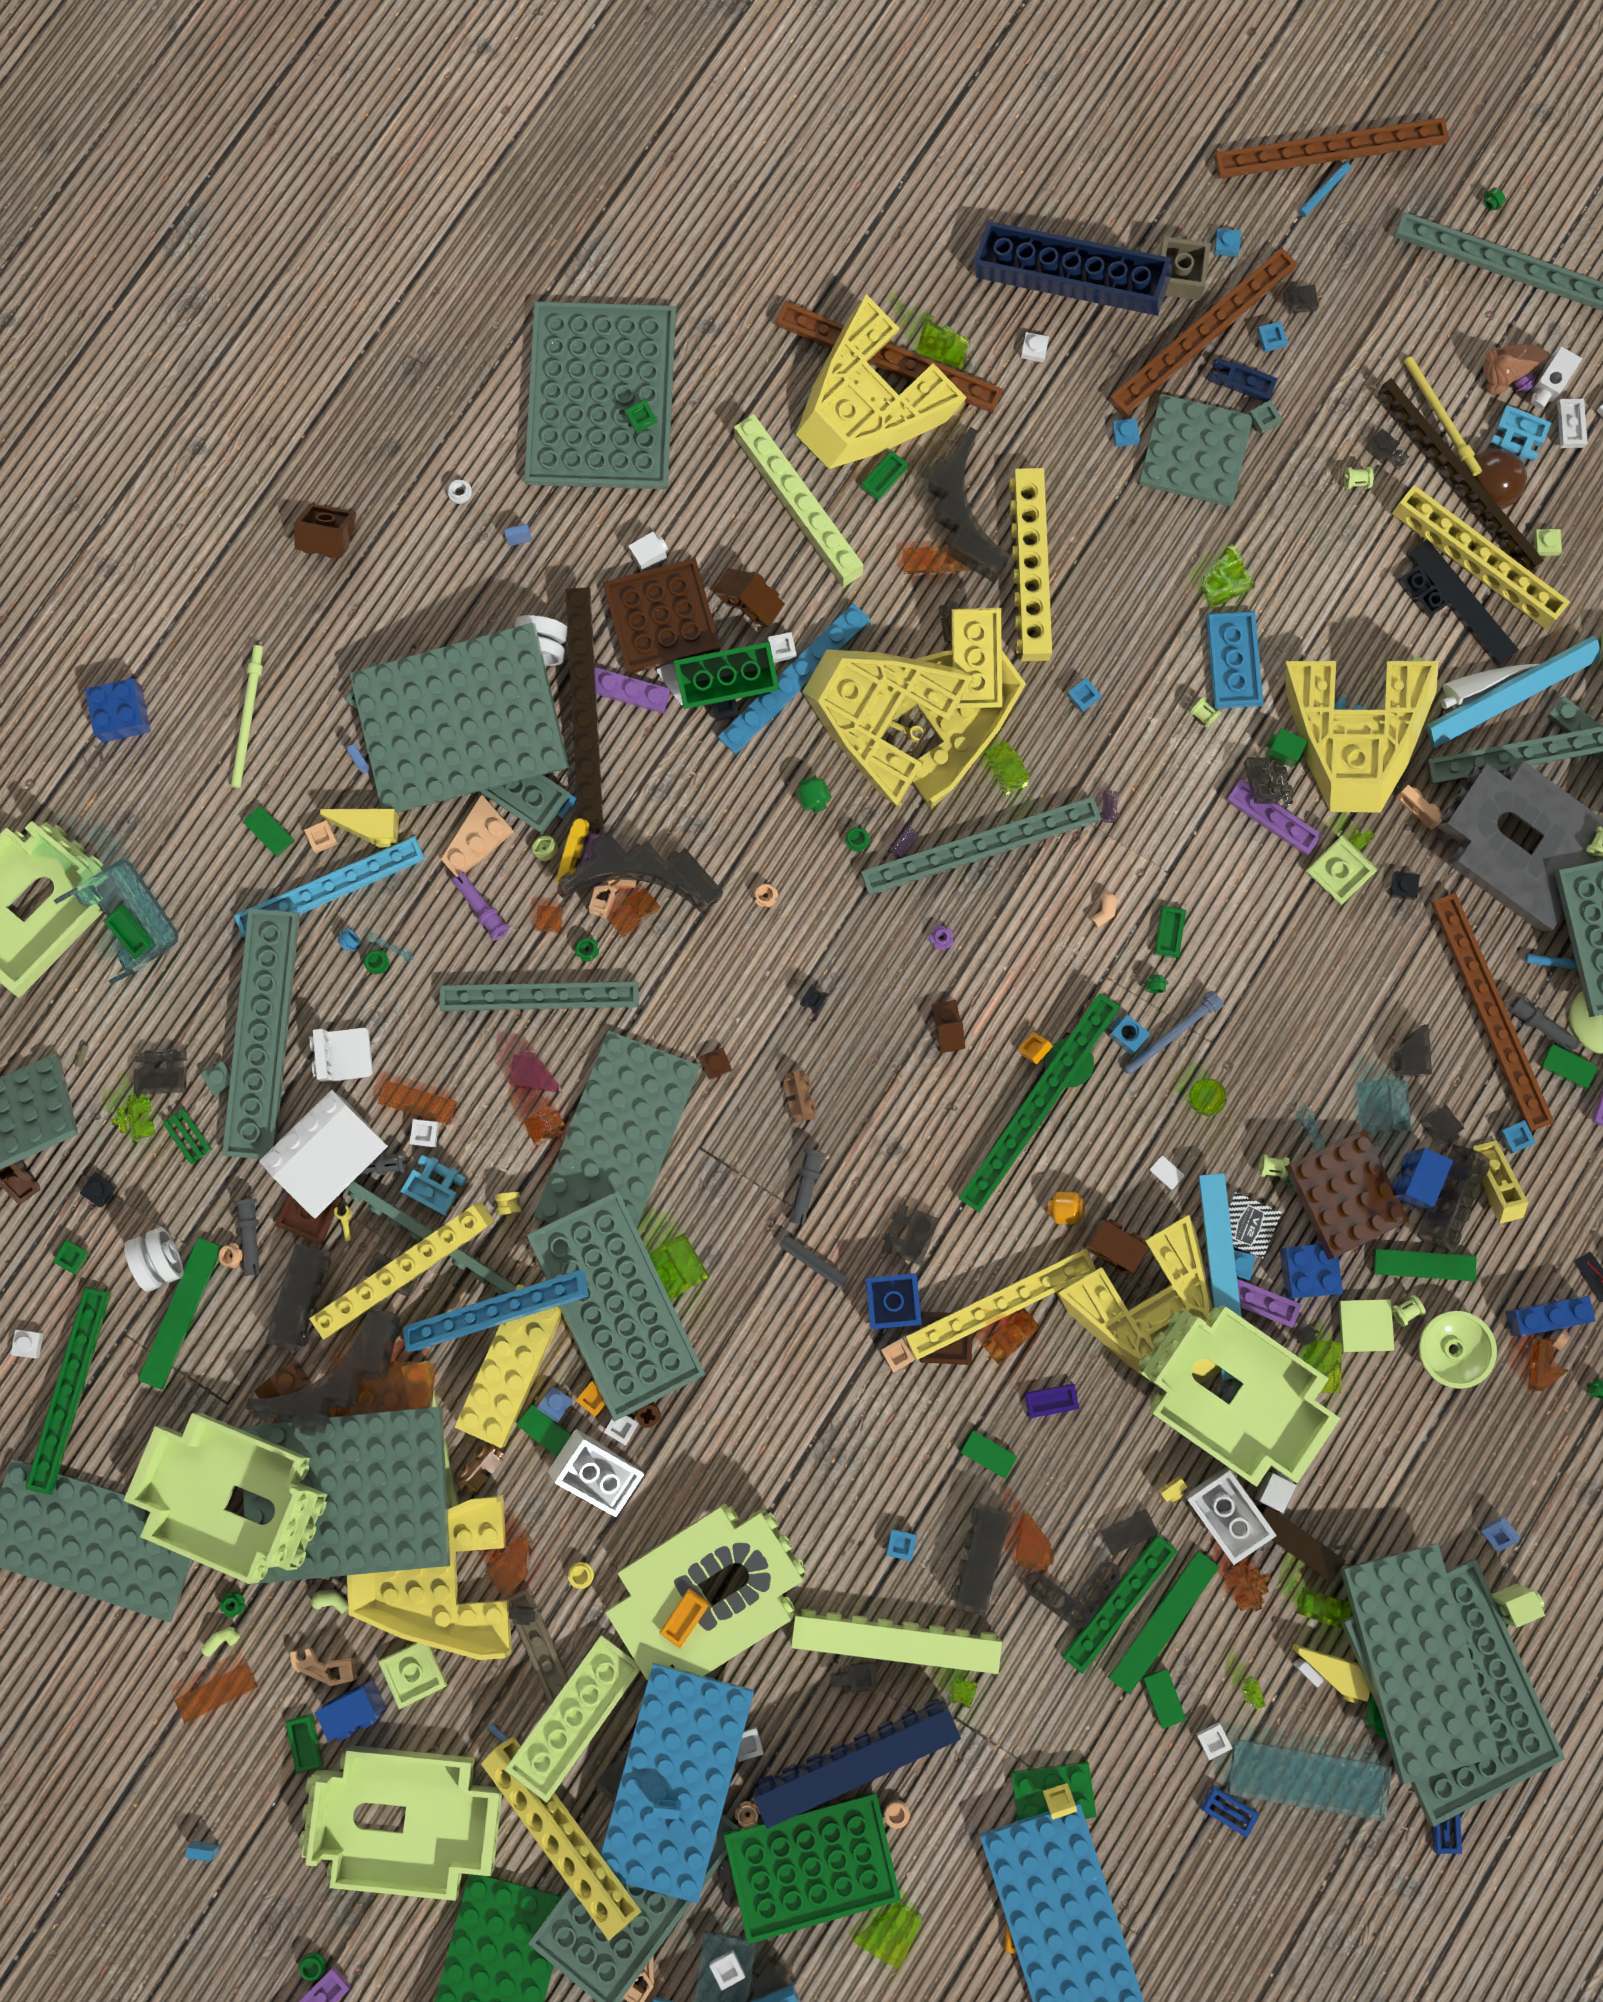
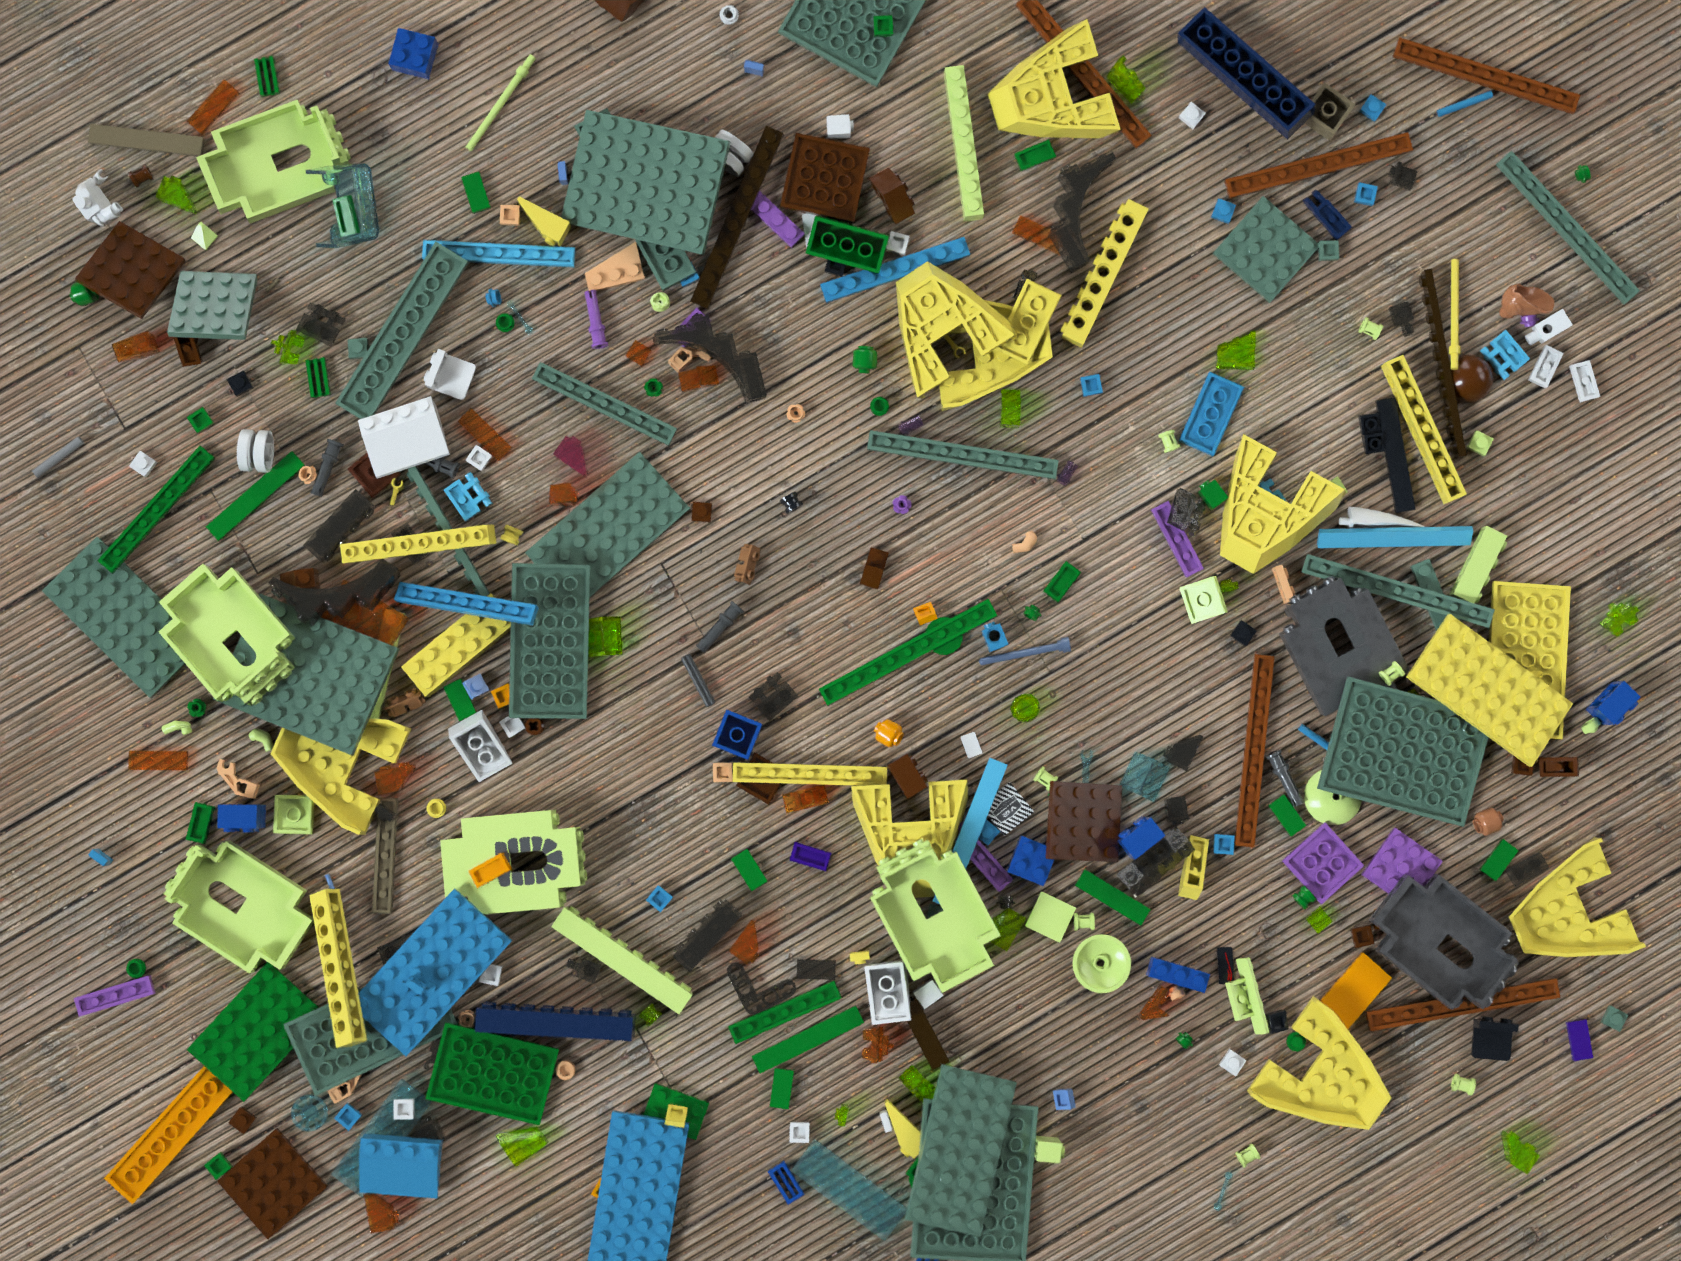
camera: 25 degrees right, 5 degrees up
(573, 847) = (679, 312): yellow hinge -> none
(573, 1719) = (384, 897): yellowish green plate -> none

